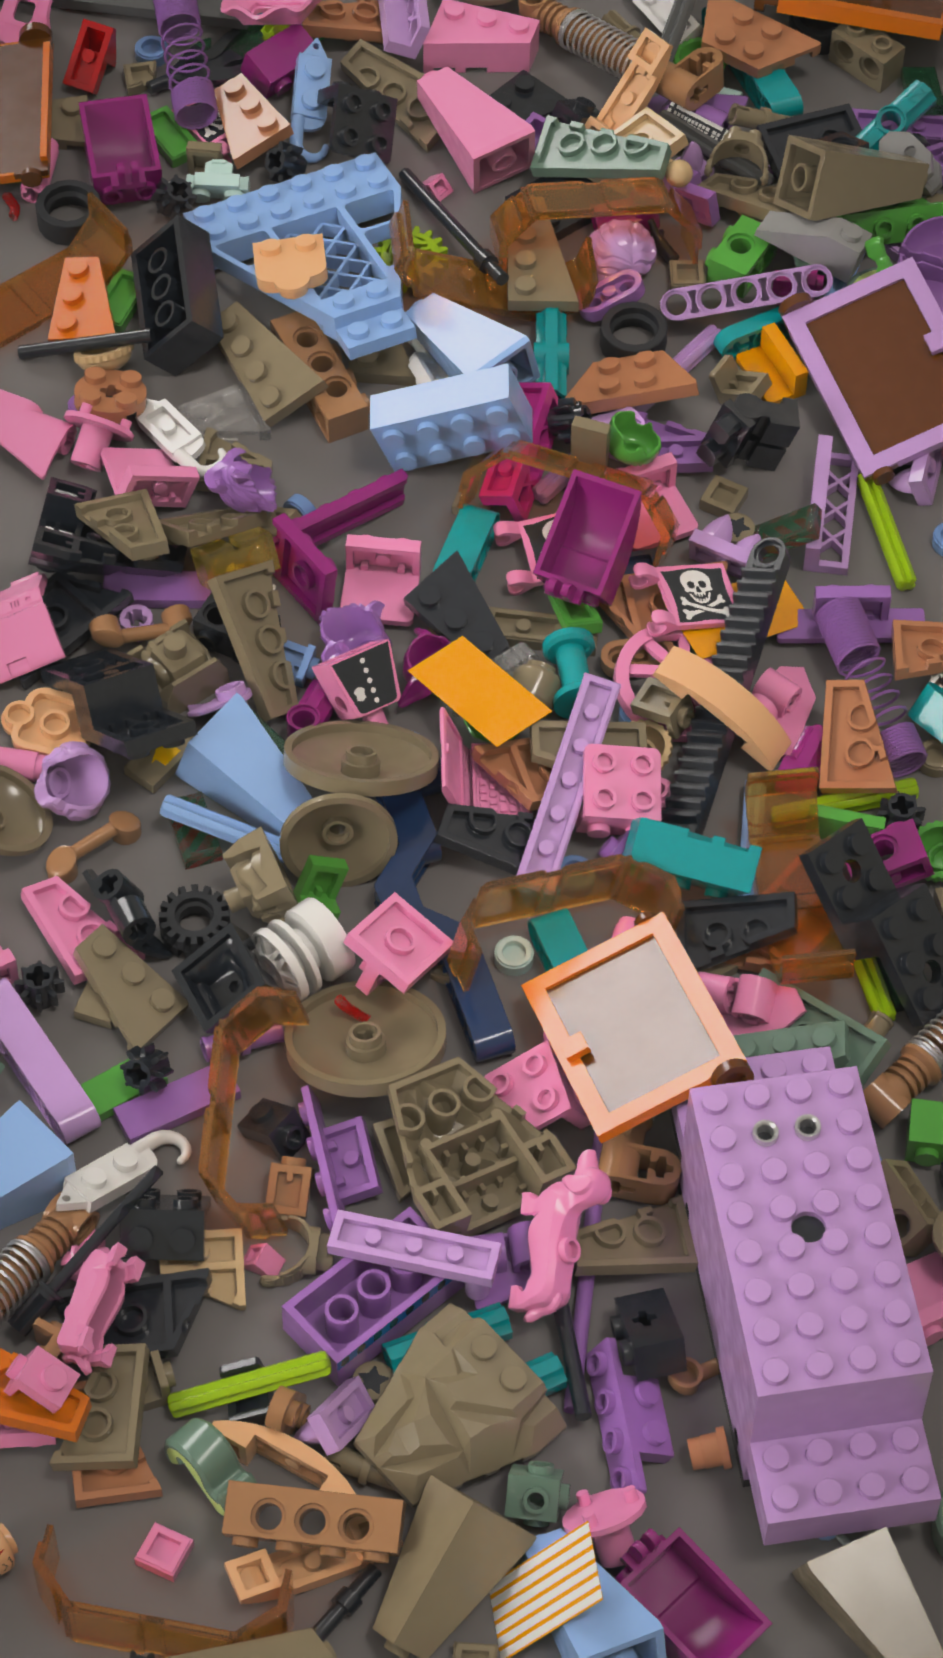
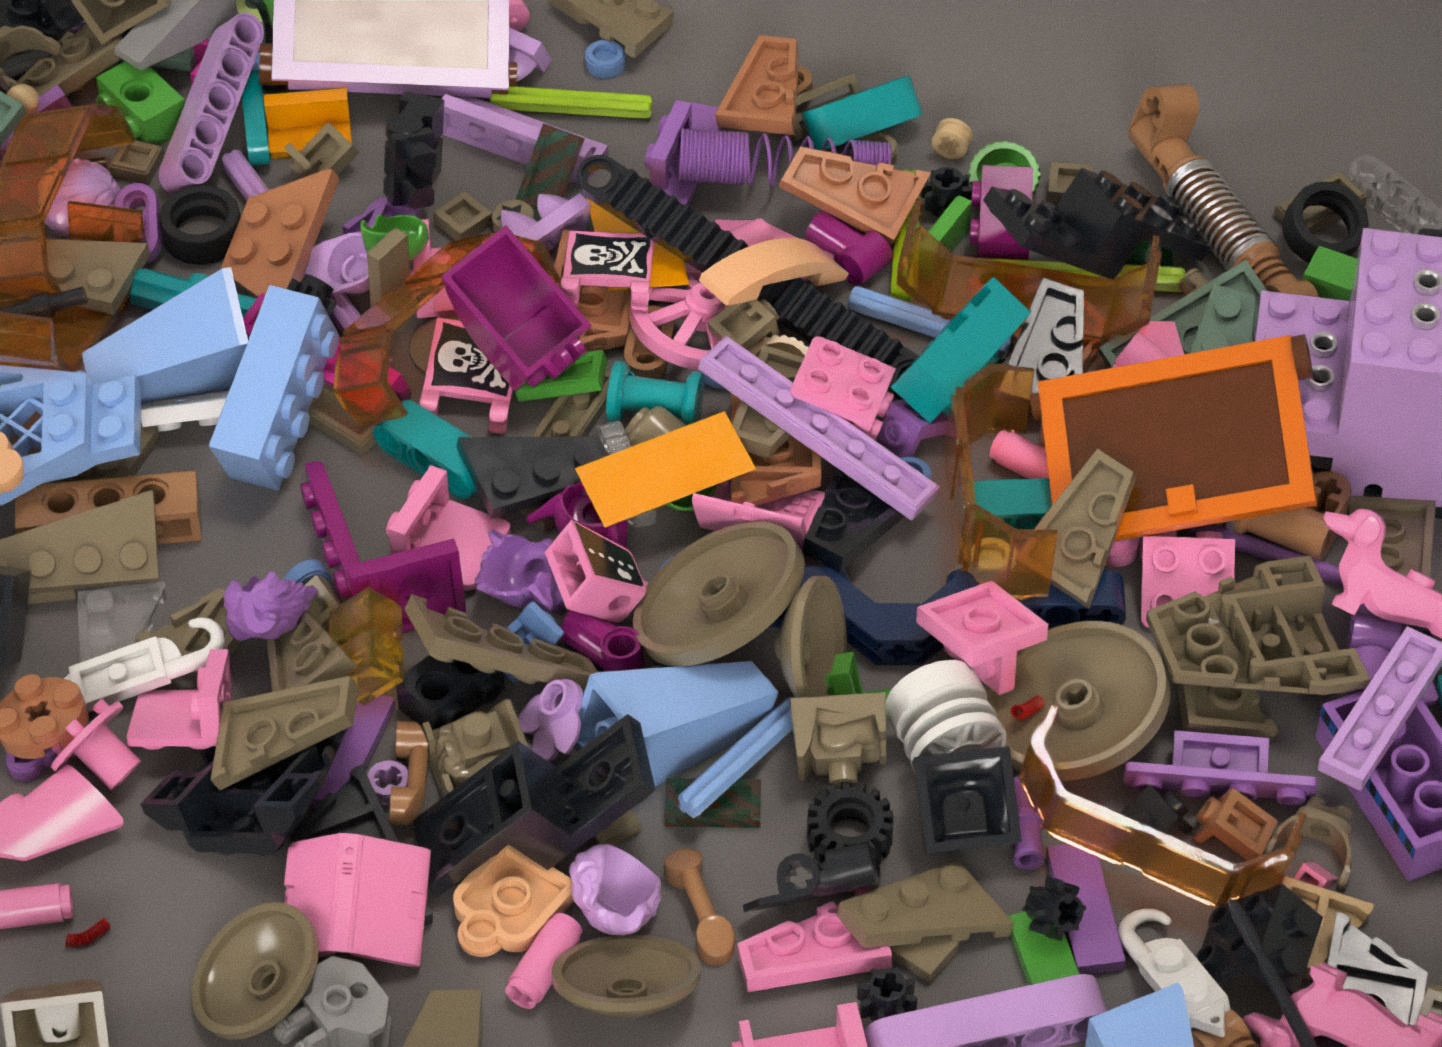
camera: 70 degrees left, 5 degrees down
(526, 986) = (1087, 524): none -> dark tan wing

